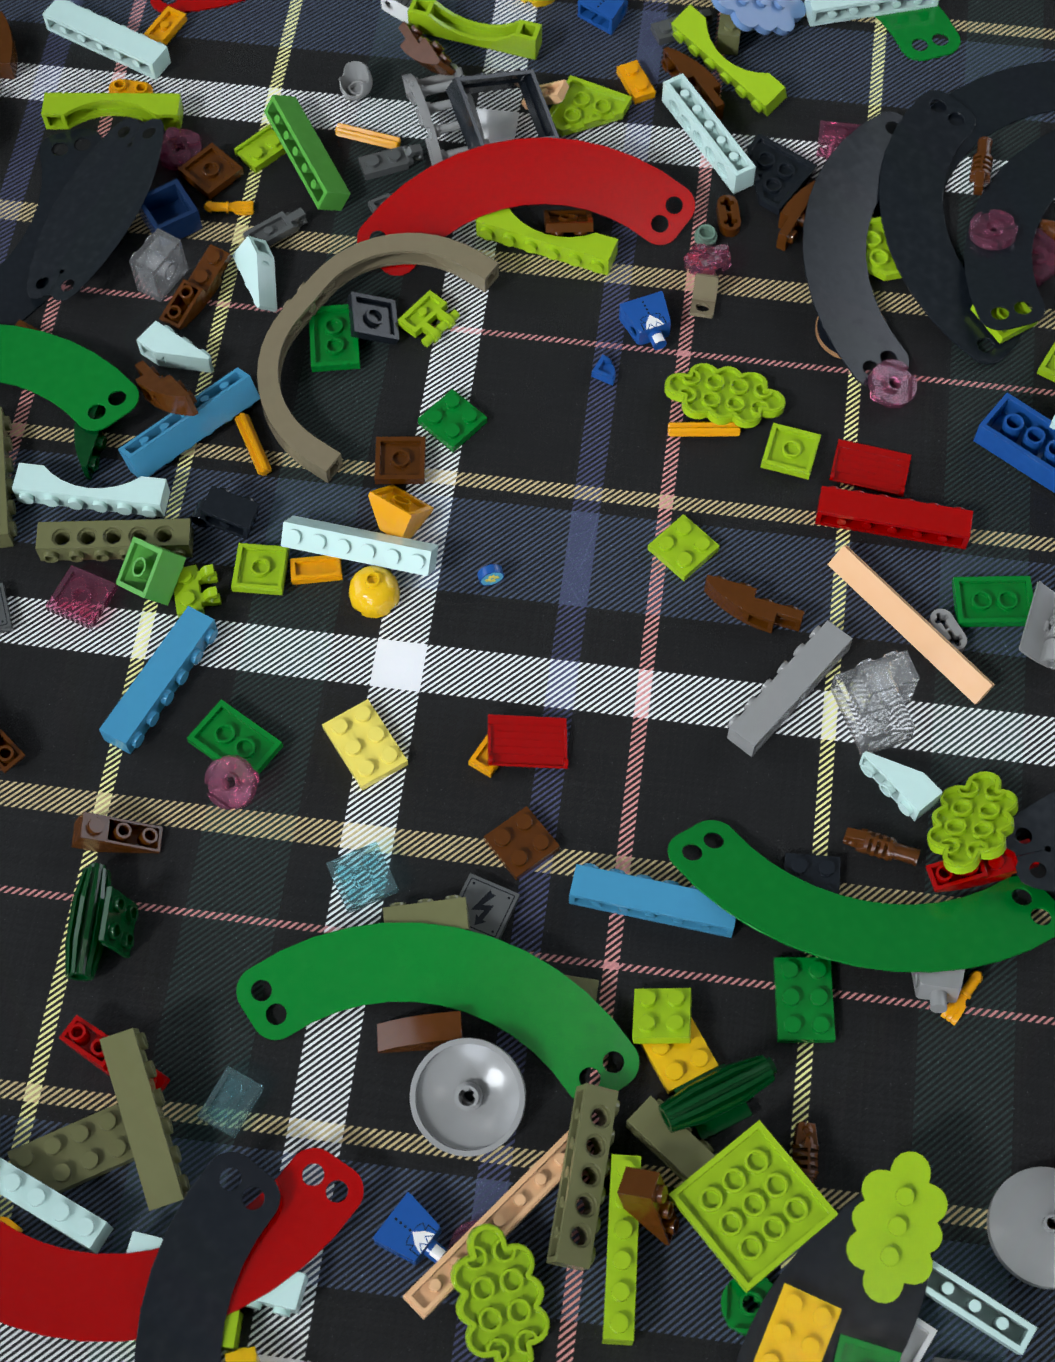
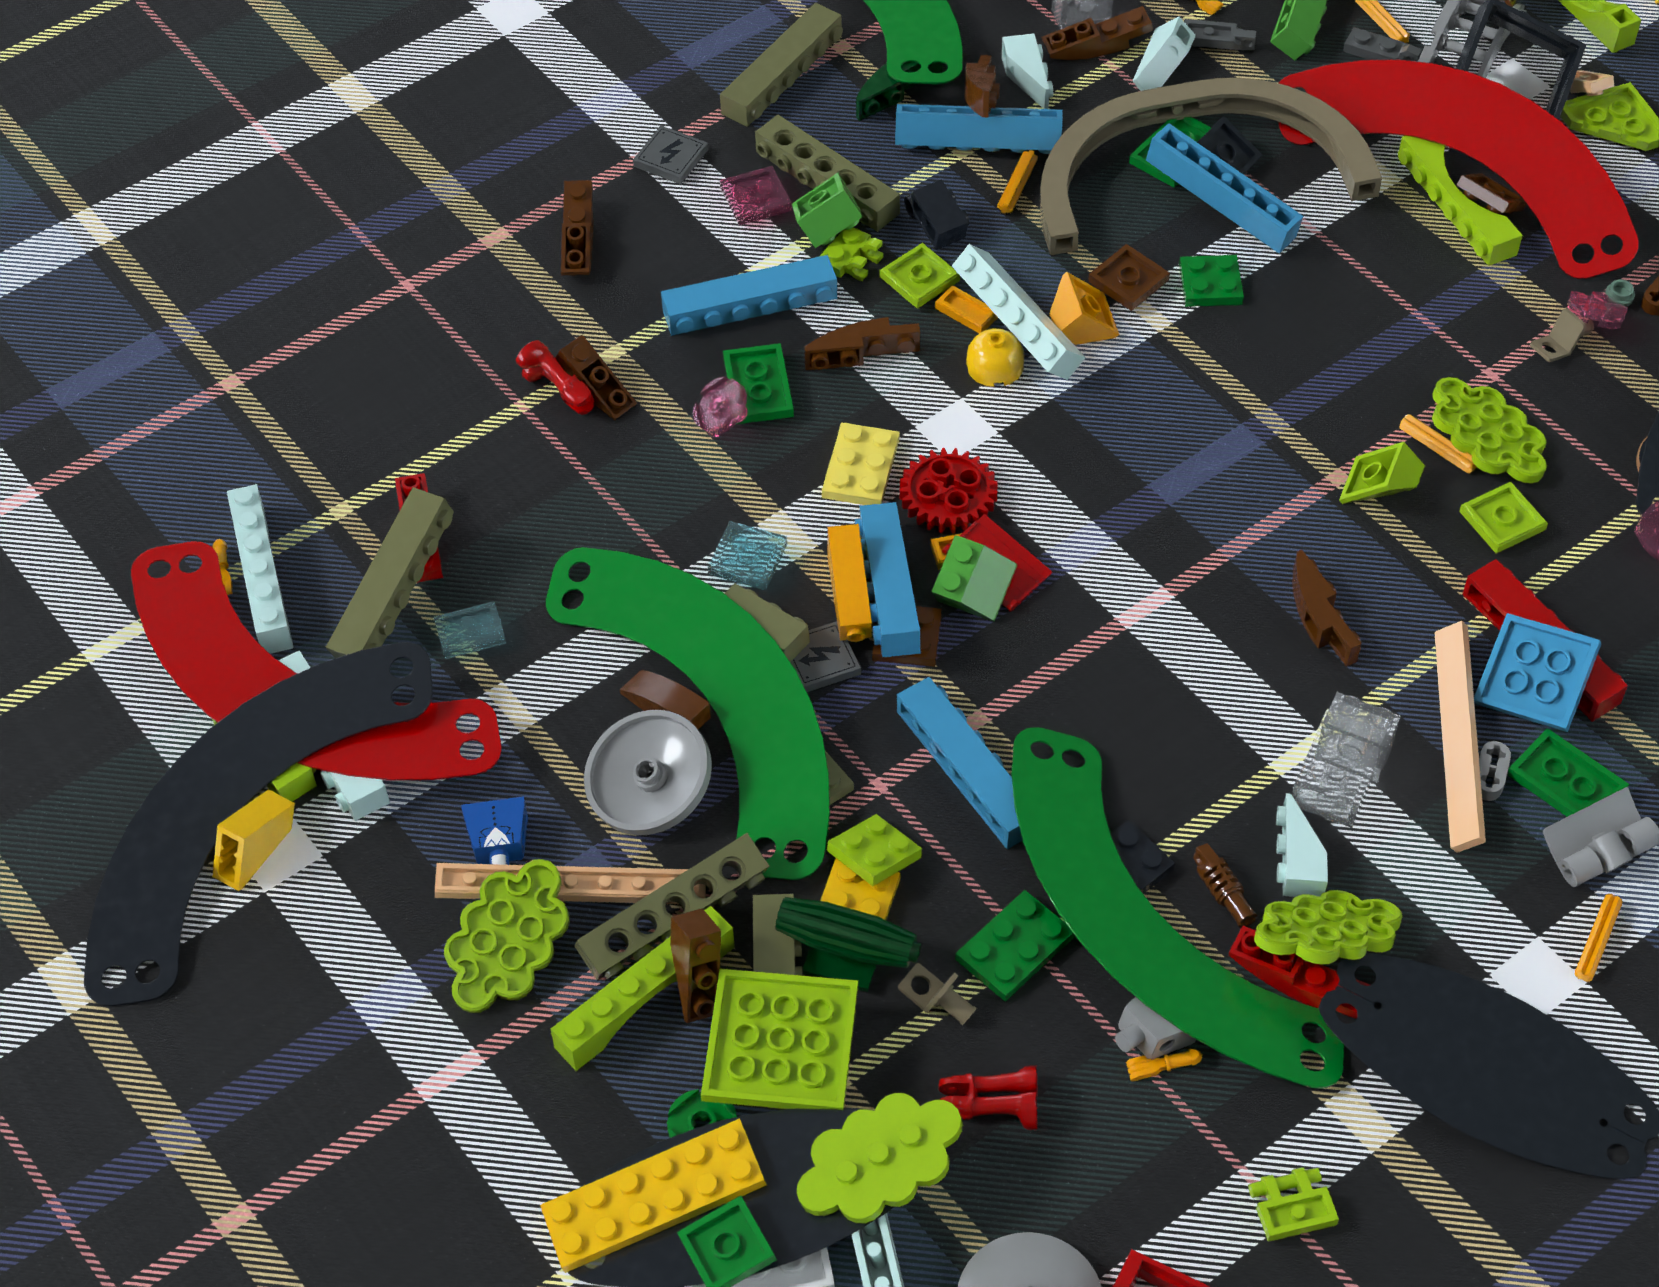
camera: 45 degrees right, 10 degrees down
(76, 1151) = (317, 570): olive plate -> none
(97, 919) = (513, 425): dark green plate -> none
(112, 858) = (540, 362): none -> red piece
(141, 496) = (879, 154): light aqua arch -> none
(270, 660) = (865, 338): none -> reddish brown slope
(403, 346) = (1224, 188): none -> dark azure brick
(423, 314) = (1282, 181): lime plate -> none
(452, 736) = (948, 490): none -> red gear
(458, 842) = (849, 582): none -> light orange slope
(479, 816) = (888, 581): none -> dark azure brick
(490, 574) = (1108, 415): tile -> none
(530, 768) = (974, 578): none -> bright green slope
(604, 370) = (1396, 335): blue tile -> none
(647, 319) = (1483, 320): blue torso -> none
(683, 547) = (1311, 522): lime plate -> none
(696, 480) = (1382, 473): none -> lime slope
(788, 688) = (1274, 696): light grey brick -> none
(800, 1077) = (938, 994): none -> dark tan bracket
(806, 1149) = (876, 1057): reddish brown hinge -> none
(870, 467) = (1571, 588): red piece -> none
(906, 1088) = (964, 1090): none -> red piece
(918, 544) = (1537, 672): none -> dark azure plate

